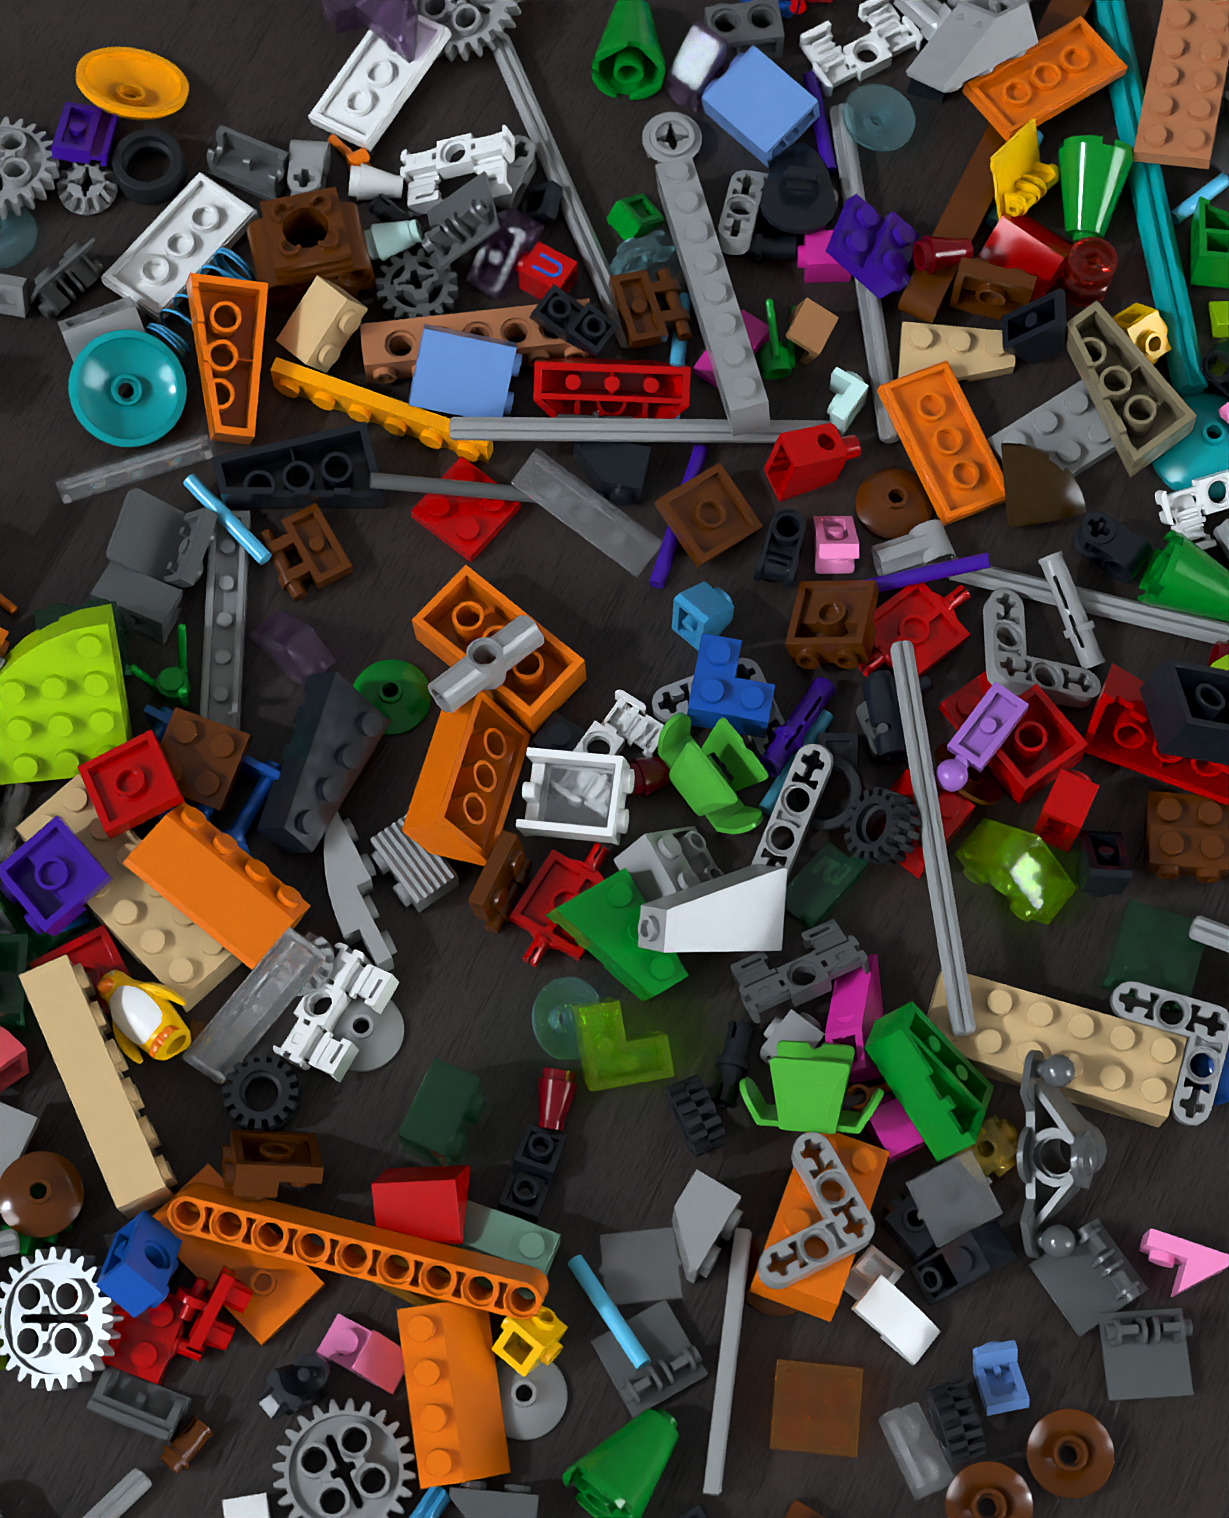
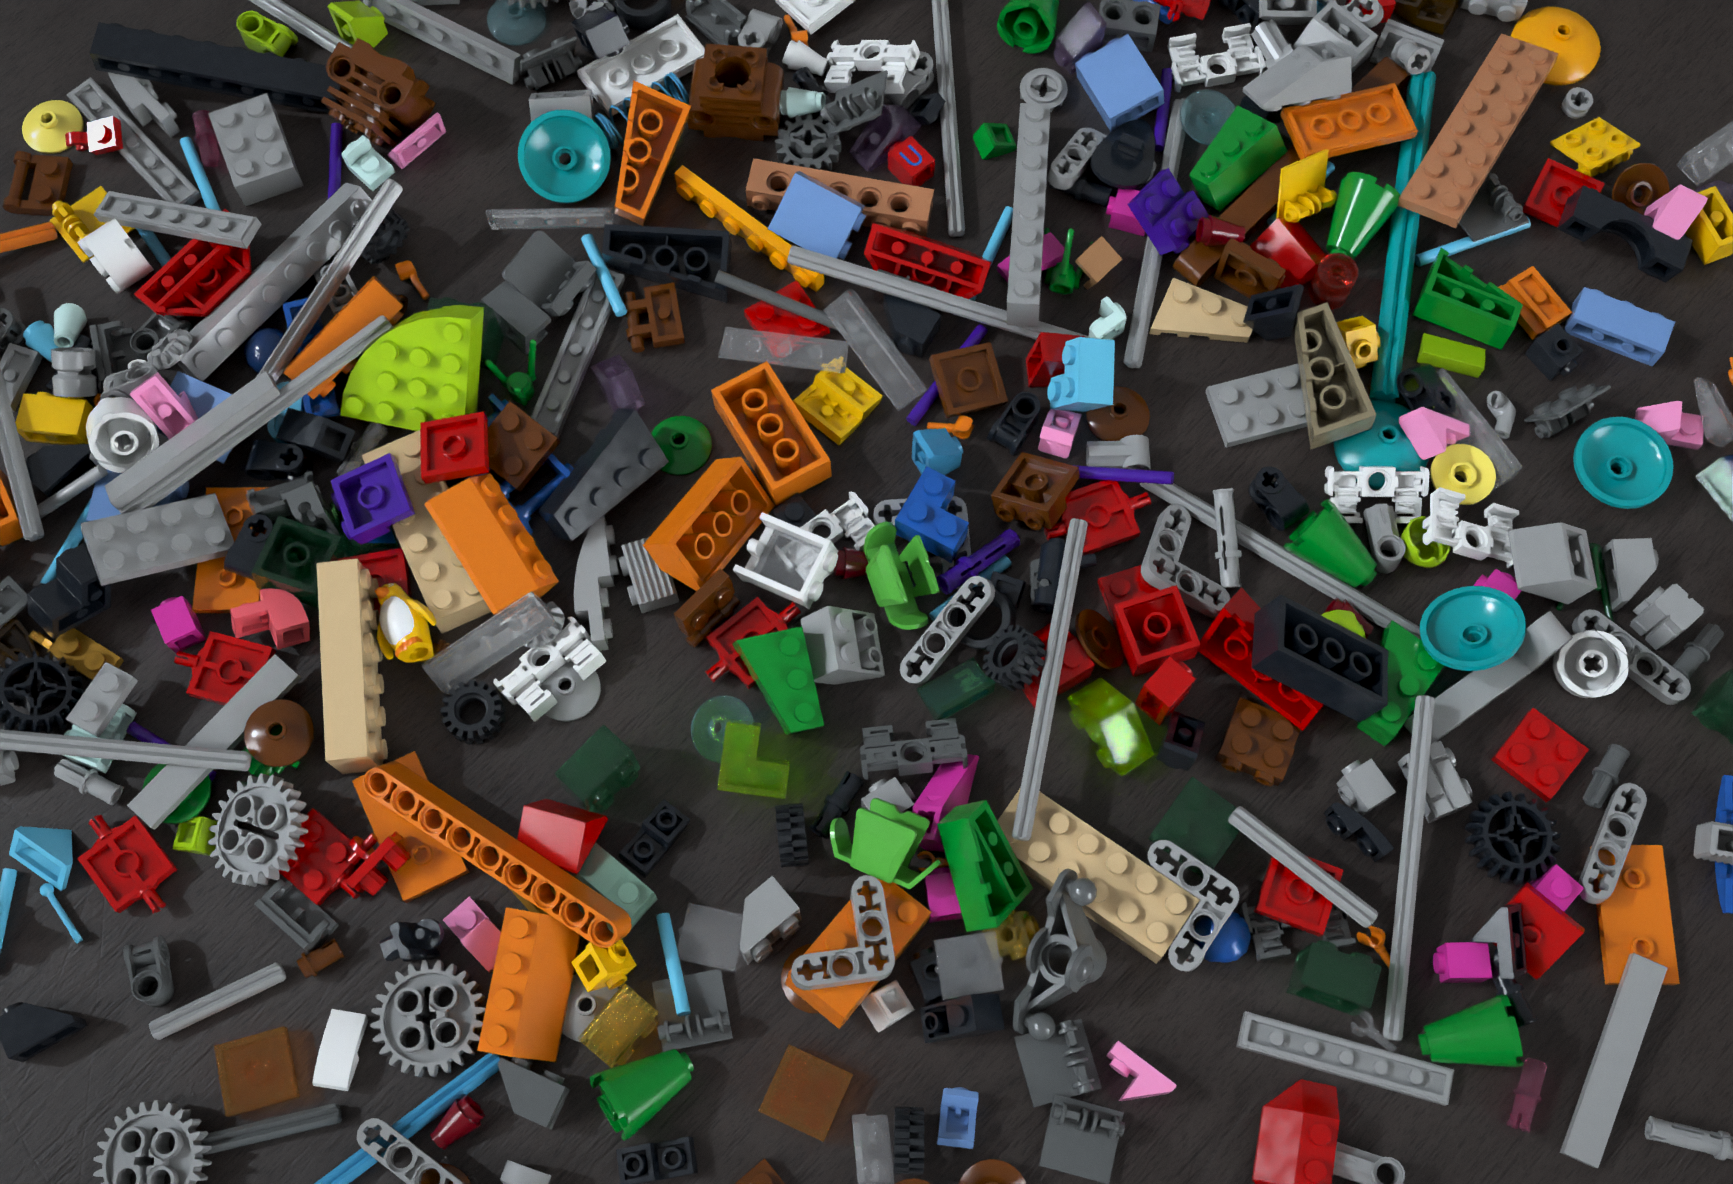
camera: 20 degrees right, 0 degrees up
(118, 222) = (602, 33): none -> brick
(140, 1264) = (331, 810): blue brick -> none
(262, 1159) = (456, 760): reddish brown plate -> none
(322, 324) = (725, 150): tan brick -> none
(479, 545) = (784, 349): none -> clear slope
(501, 652) = (751, 438): light grey piece -> none
(555, 1097) = (692, 786): dark red cone -> none
(562, 587) = (837, 403): none -> yellow slope
(572, 322) = (914, 202): black slope -> none
(573, 1405) = (619, 1026): none -> clear yellow brick
(639, 253) = (984, 167): clear light blue plate -> none
(639, 310) = (970, 206): reddish brown plate -> none
(719, 575) = (961, 429): none -> orange hand
(719, 915) = (863, 686): slope -> none
(727, 1362) = (748, 1034): light grey tile -> none
(850, 468) = (1087, 376): none -> medium azure brick
(896, 1319) = (892, 1044): white slope -> none
(929, 157) = (1236, 157): none -> green wedge
(944, 442) = (1173, 379): orange plate -> none
(980, 736) = (1116, 611): medium lavender plate -> none
(1037, 487) = (1232, 435): dark brown brick -> none

